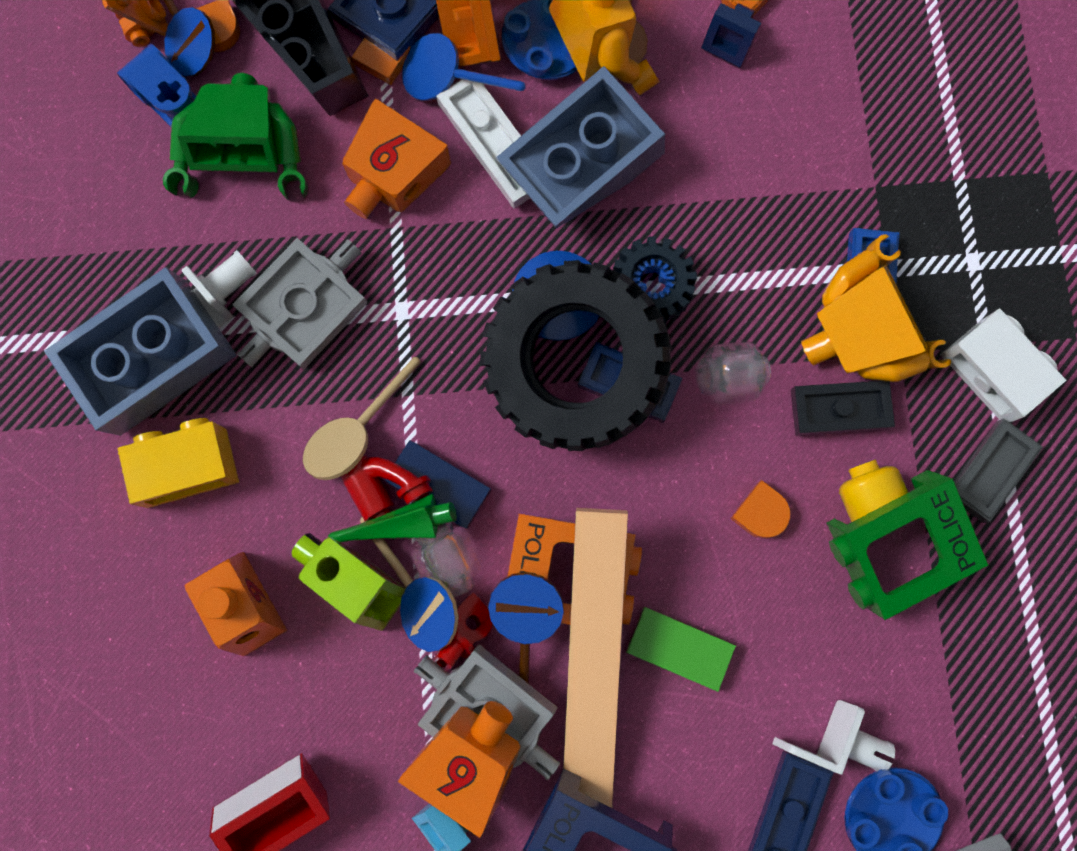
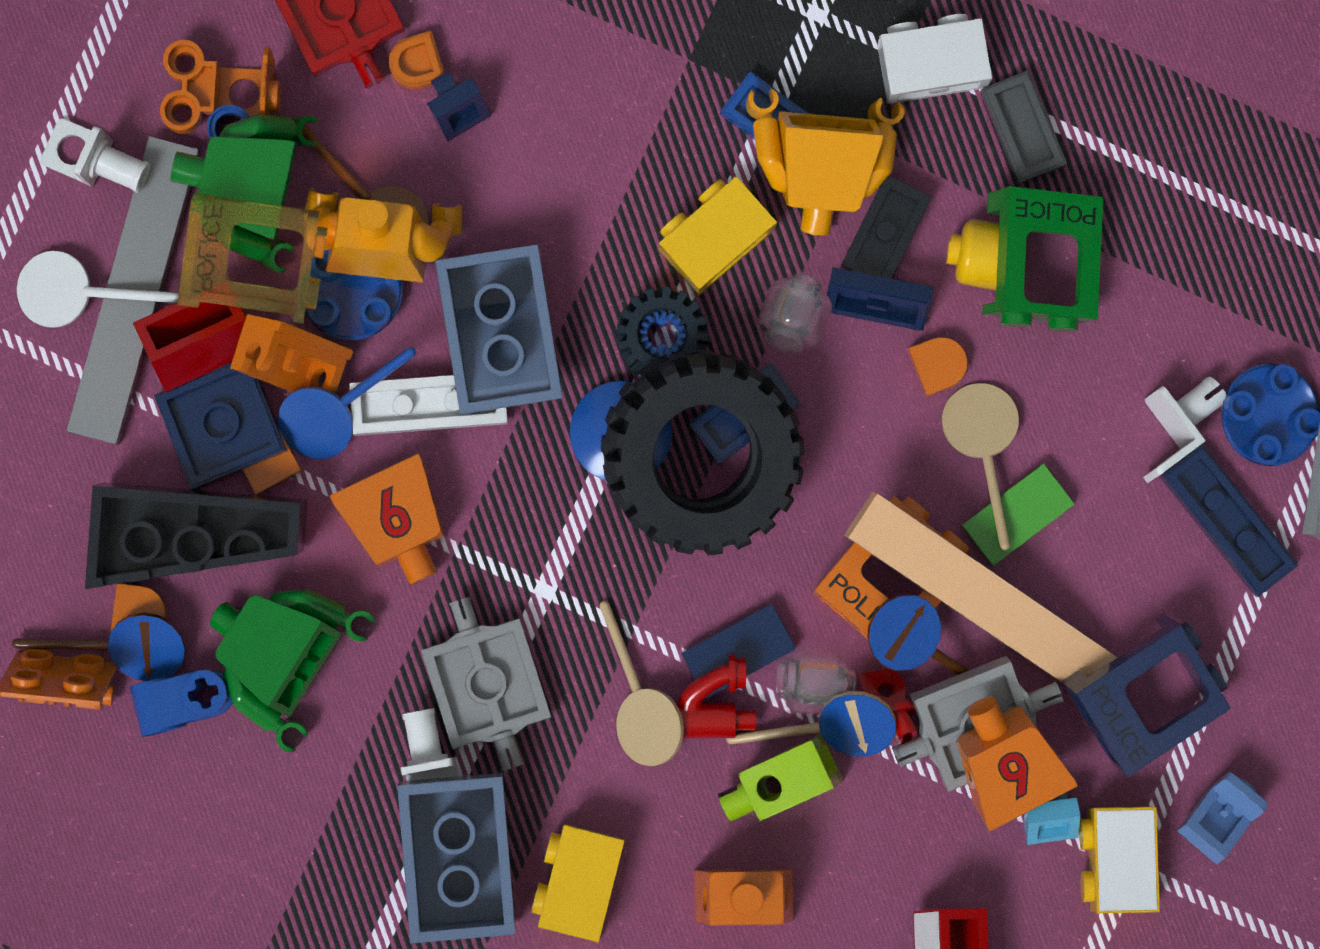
camera: 65 degrees left, 5 degrees up
(411, 521) = (764, 690): green piece -> none
(736, 576) = (981, 424): none -> tan piece
(757, 277) = (715, 234): none -> yellow brick
(786, 432) = (879, 299): none -> dark blue tile

